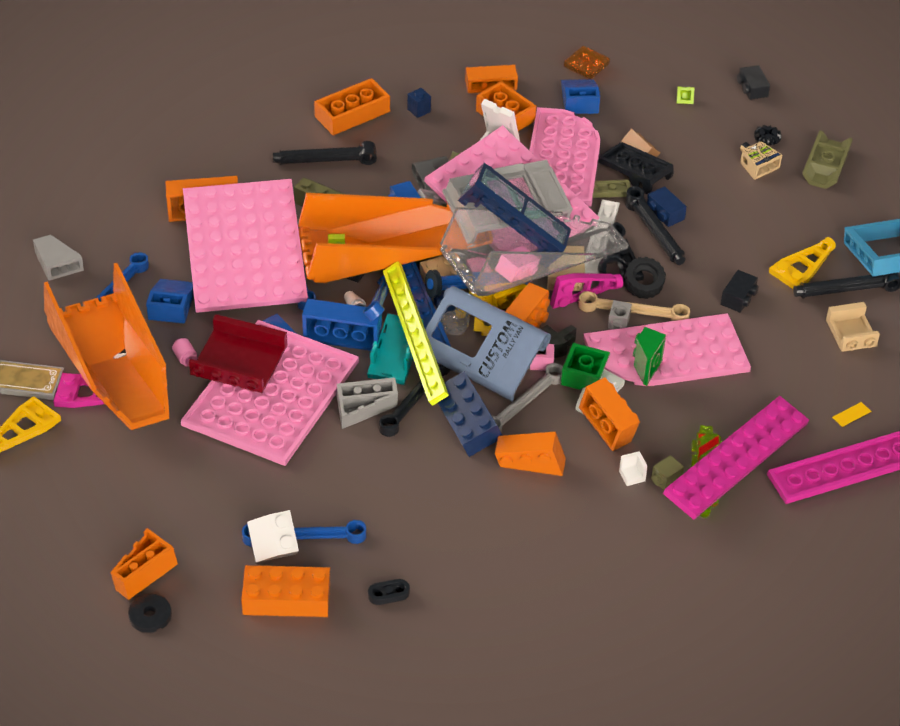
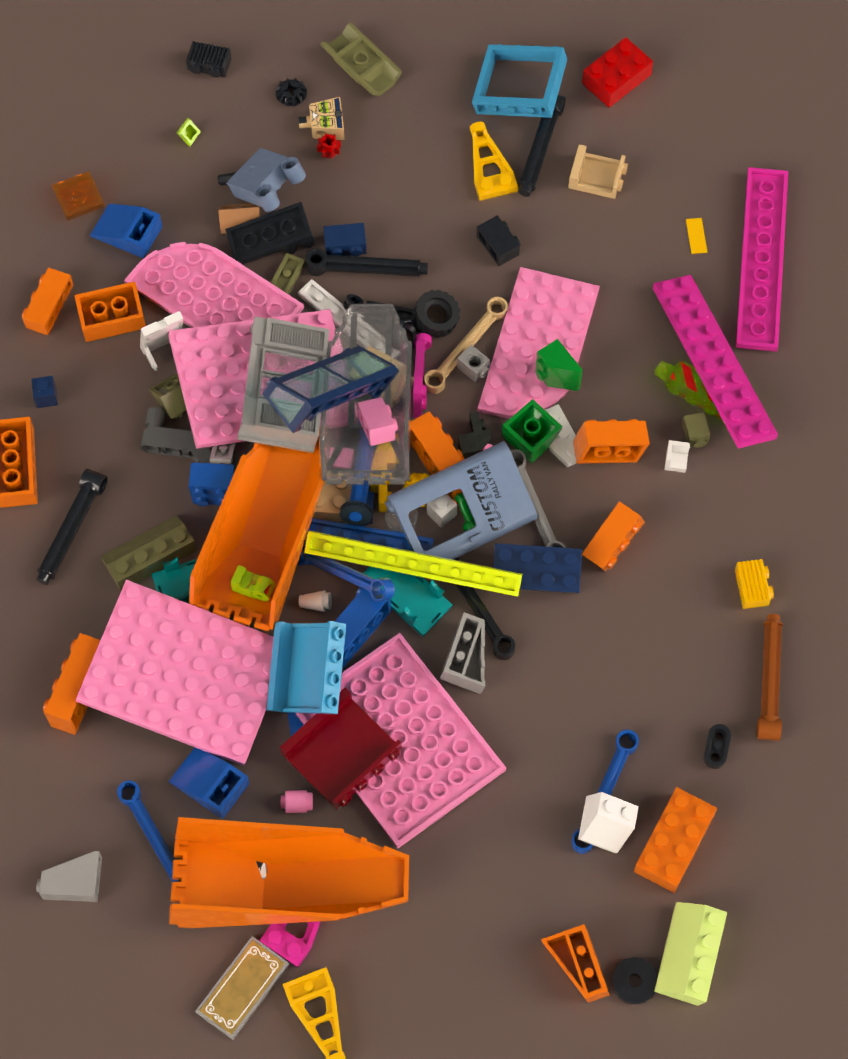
camera: 60 degrees left, 20 degrees up
(192, 639) = (690, 952): none -> yellowish green slope
(285, 298) = (306, 667): none -> dark azure panel
(429, 619) = (769, 724): none -> dark orange piece
(476, 340) = (442, 510): none -> white brick
(553, 562) = (753, 584): none -> yellow brick
(675, 138) = (262, 177): none -> sand blue piece
(738, 169) = (329, 146): none -> red gear

